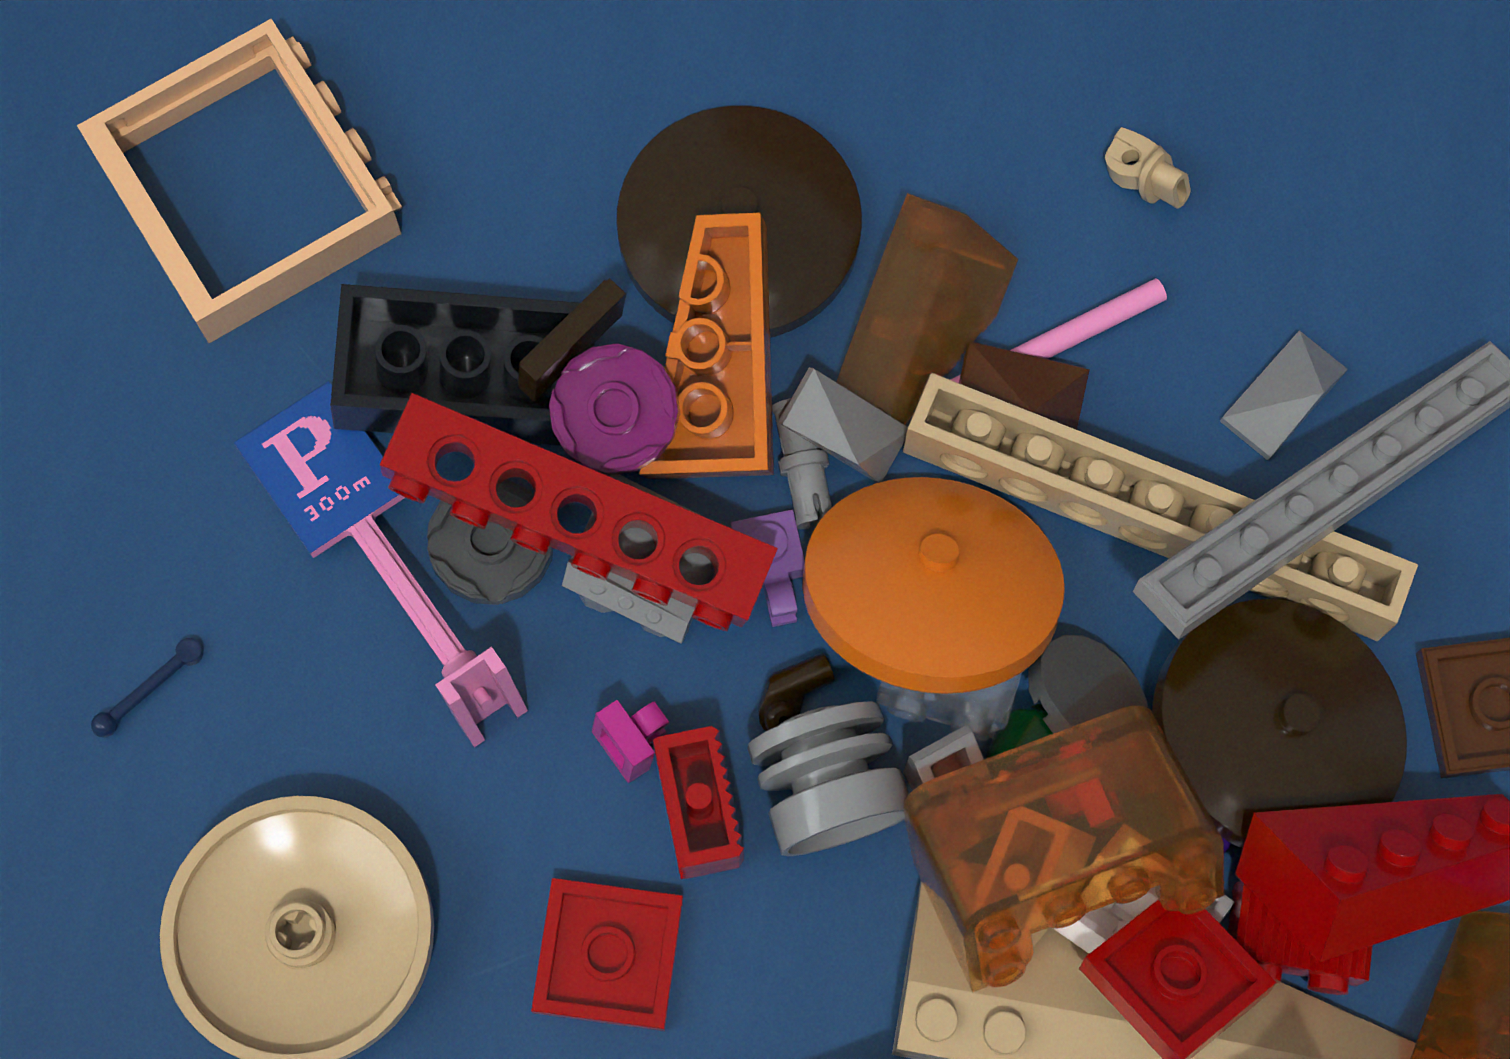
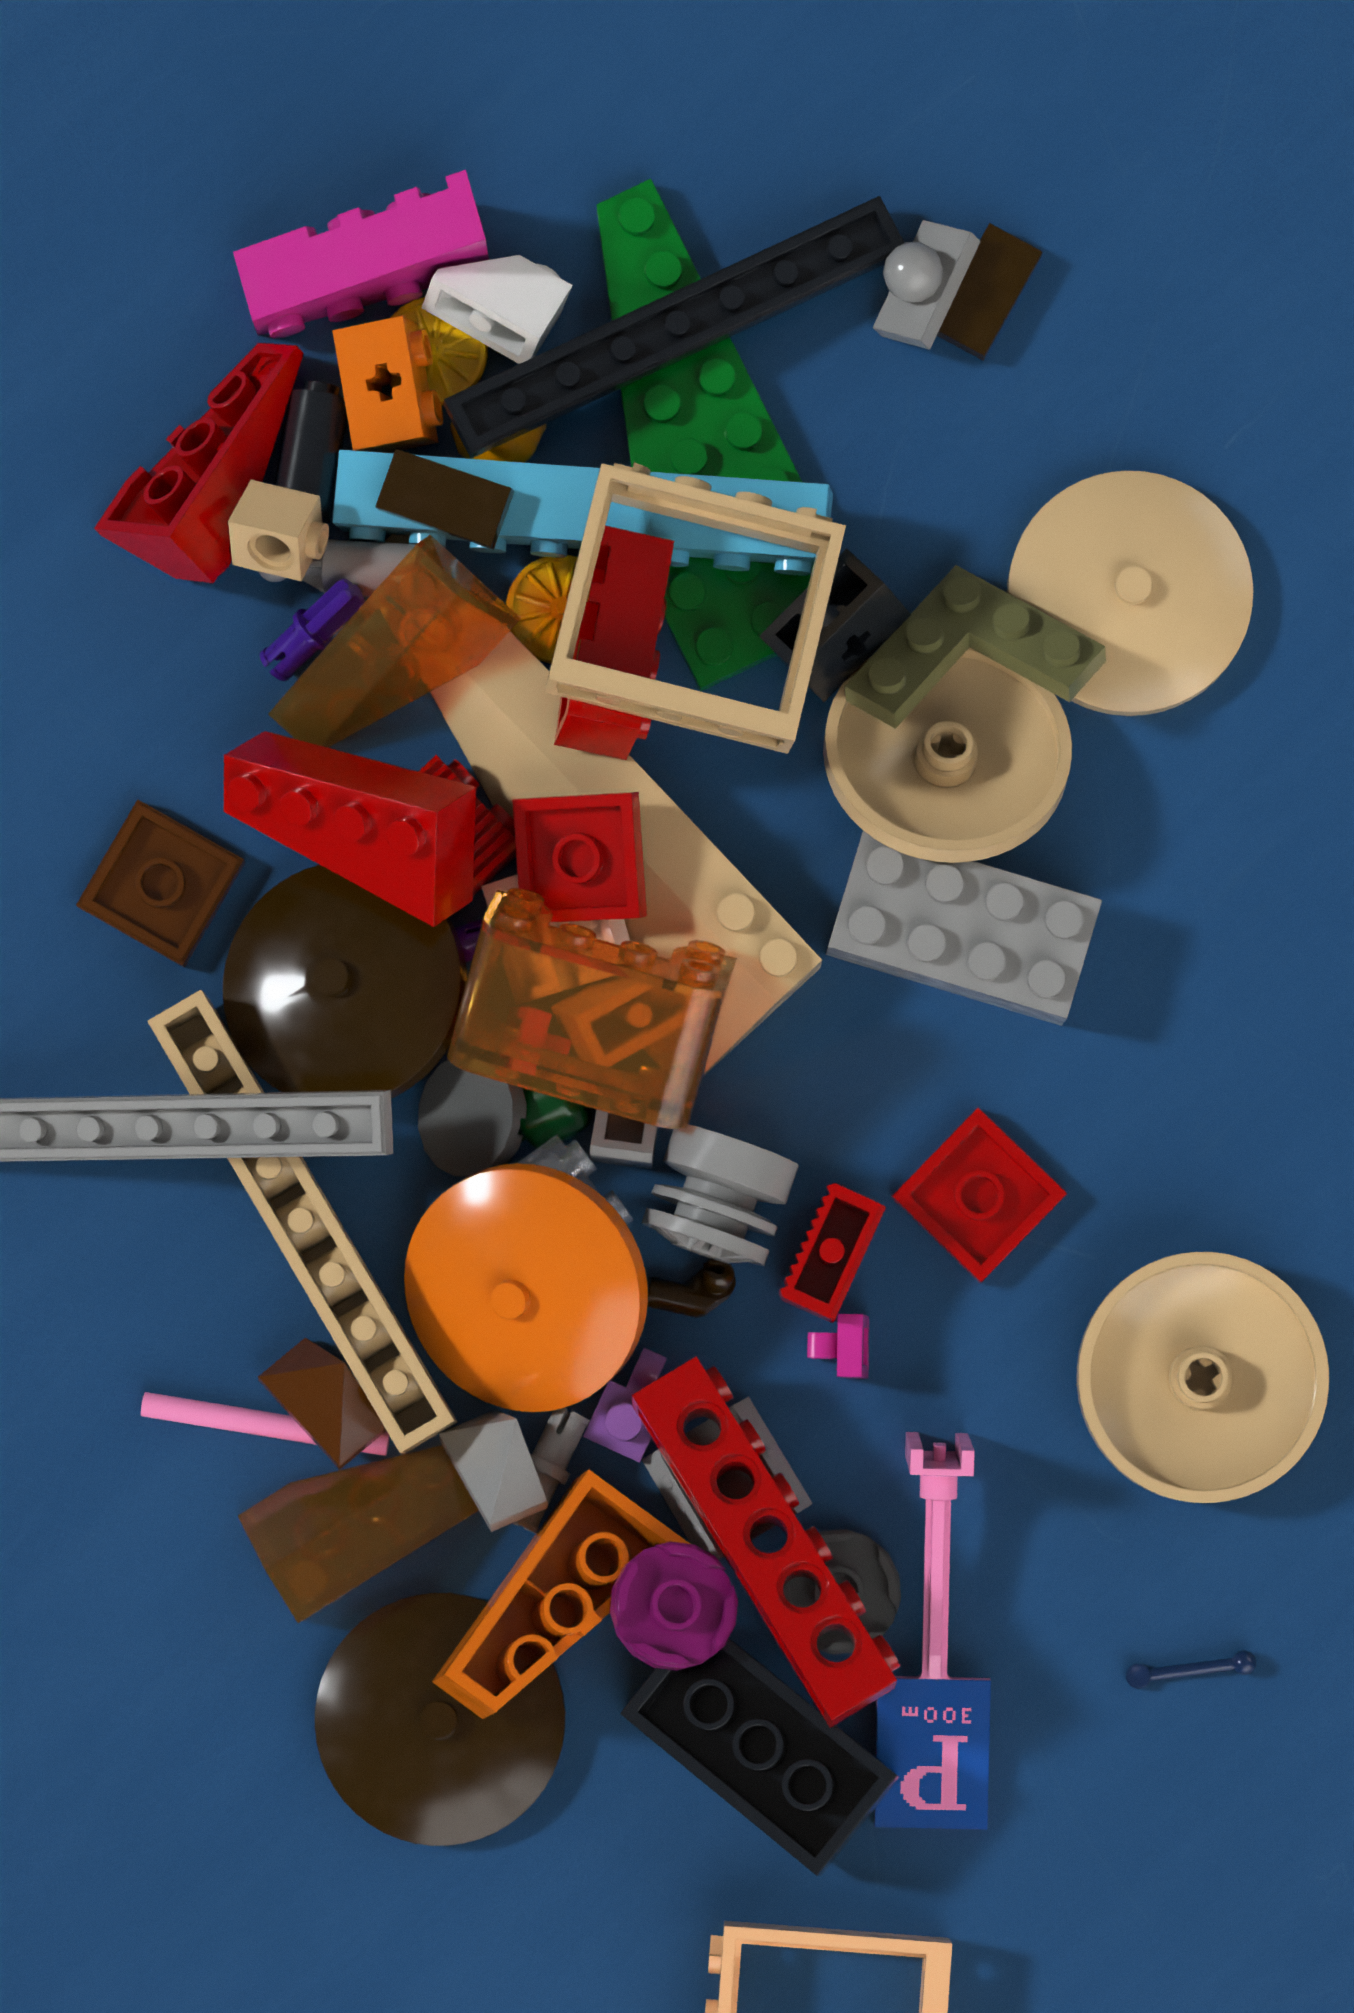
camera: 140 degrees left, 10 degrees up
(571, 338) = (668, 1687): dark brown tile -> none
(1152, 173) = (71, 1505): tan piece -> none
(1283, 395) = (115, 1243): light grey slope -> none

